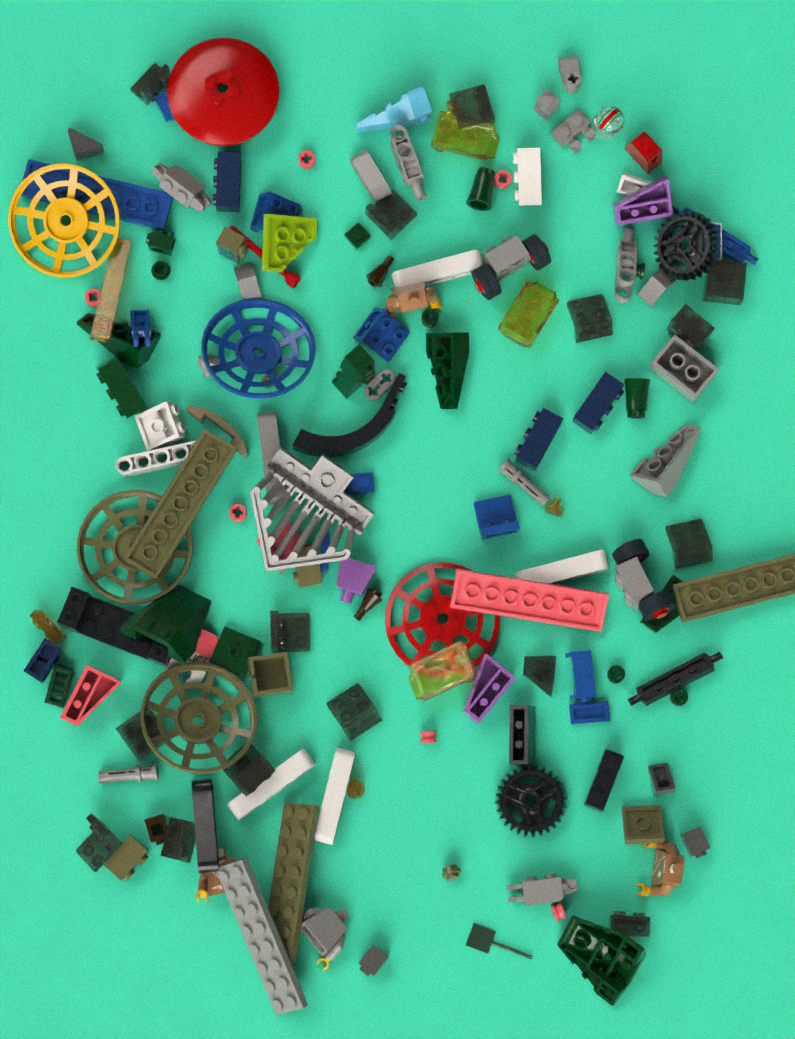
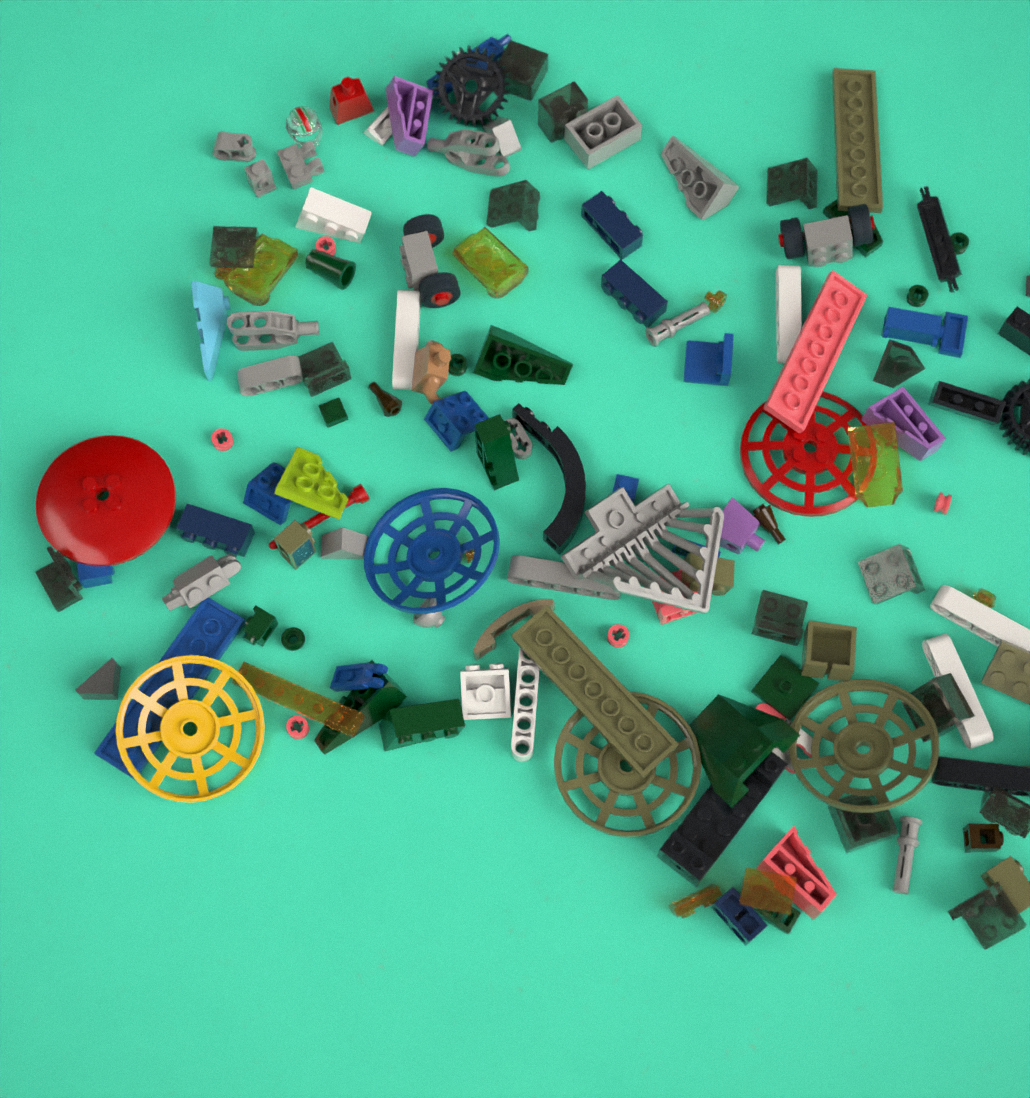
camera: 70 degrees left, 10 degrees down
(63, 673) = (767, 891): none -> clear orange plate
(636, 397) = (618, 186): dark green plant -> none

